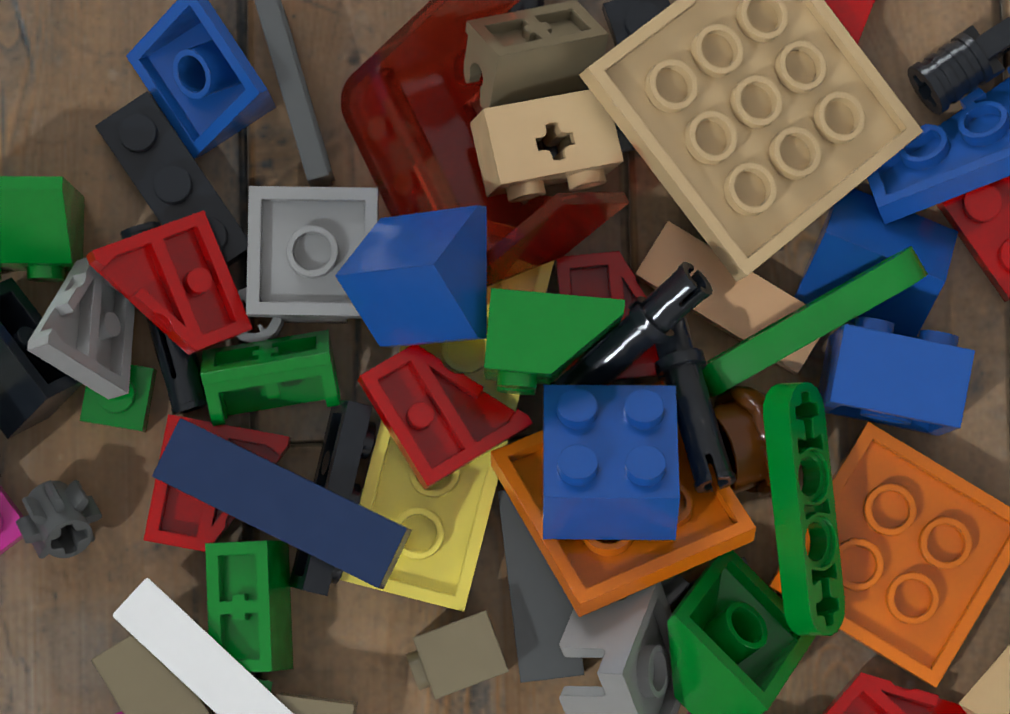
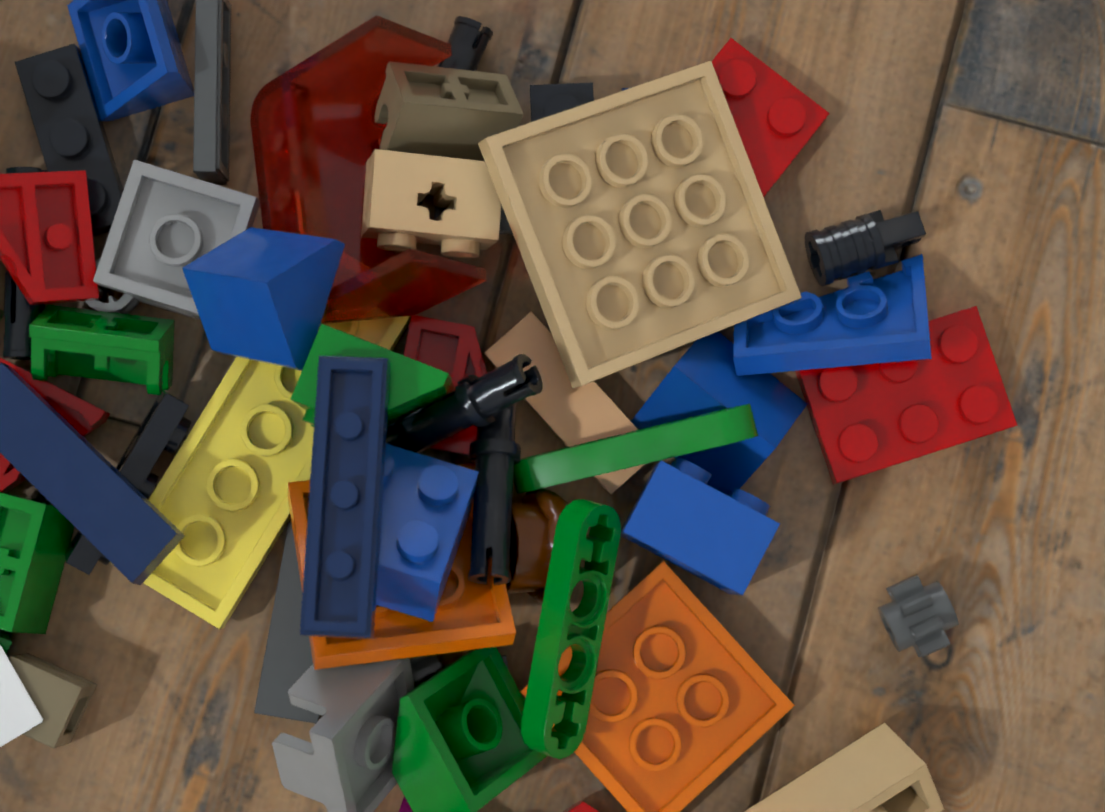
camera: 15 degrees right, 0 degrees up
(437, 414) = (245, 429): red wing -> none
(457, 655) = (201, 669): dark tan brick -> none
(568, 443) = (345, 497): none -> dark blue tile

